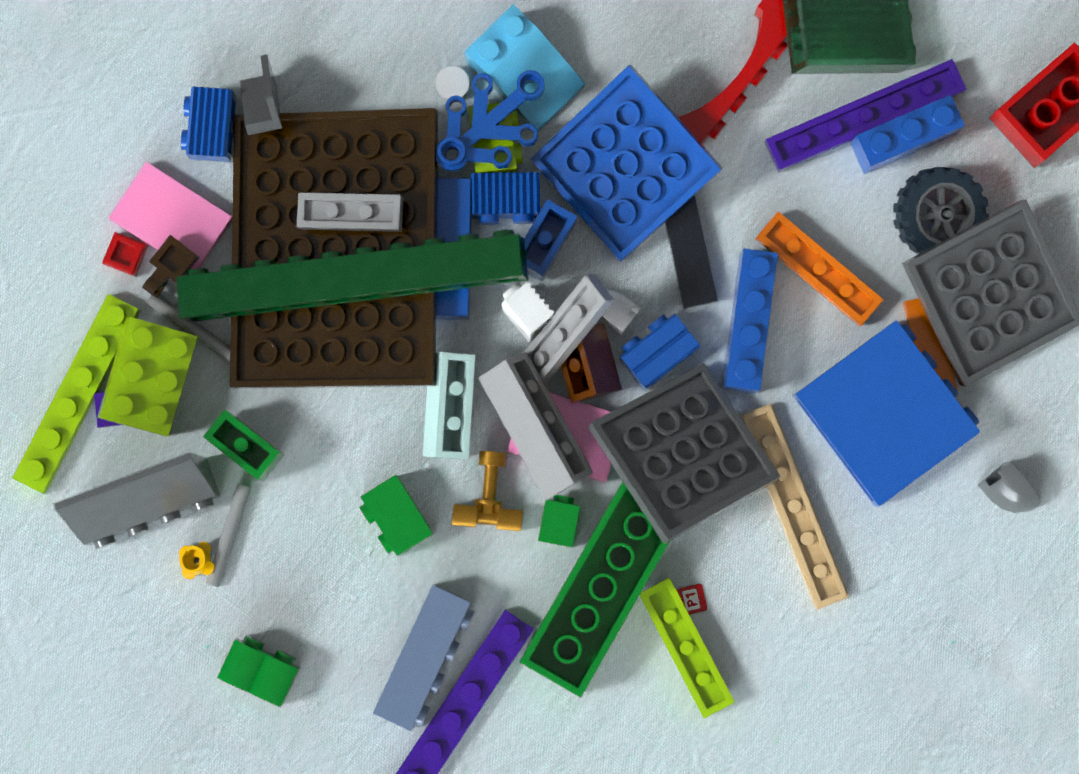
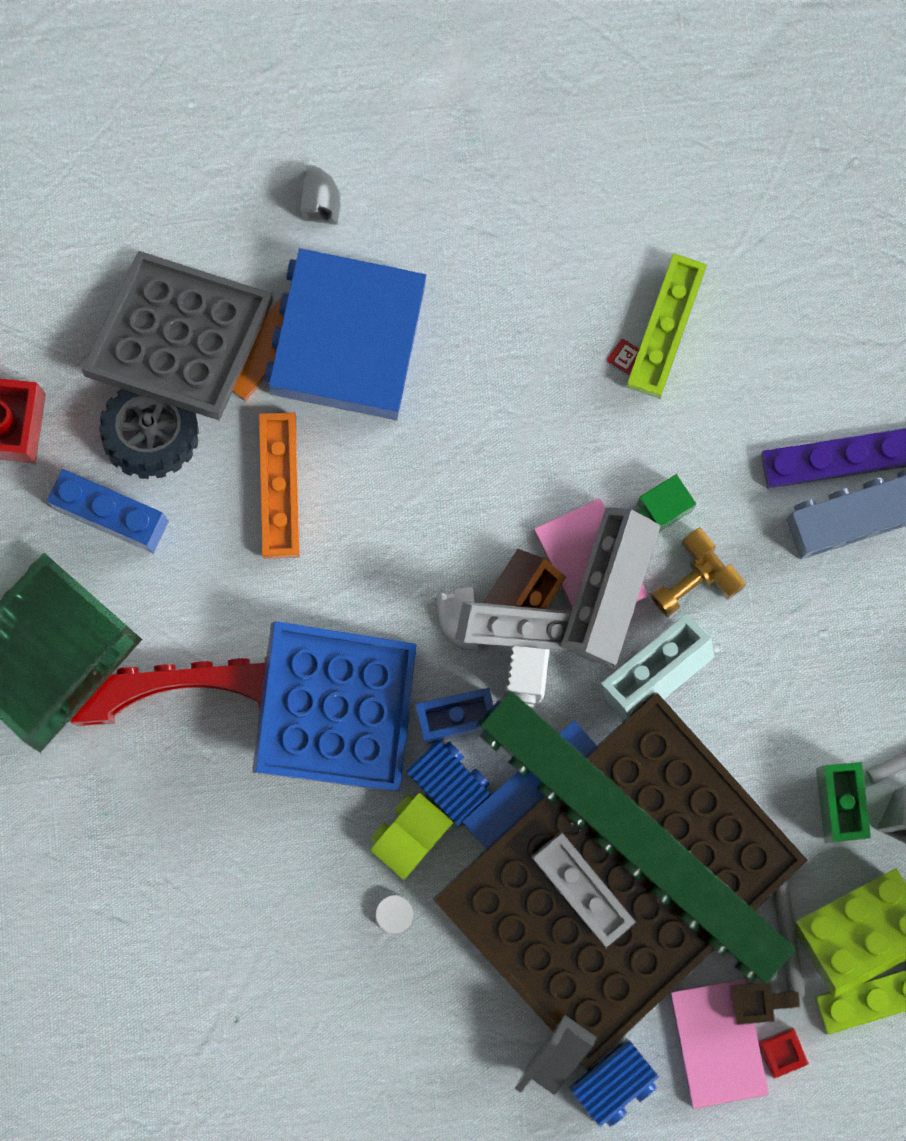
camera: 130 degrees left, 5 degrees down
(395, 515) = (781, 633): green brick -> none
(486, 125) = (408, 848): blue plant -> none
(518, 46) = (329, 865): medium azure slope -> none
(596, 596) = (684, 424): green brick -> none
(659, 351) = (460, 549): blue brick -> none
(683, 453) = (525, 453): dark grey plate -> none
(690, 256) = (363, 590): black tile -> none
(749, 321) = (371, 499): blue brick -> none
(797, 512) = (482, 344): tan tile -> none
(863, 114) = (121, 558): dark purple plate -> none

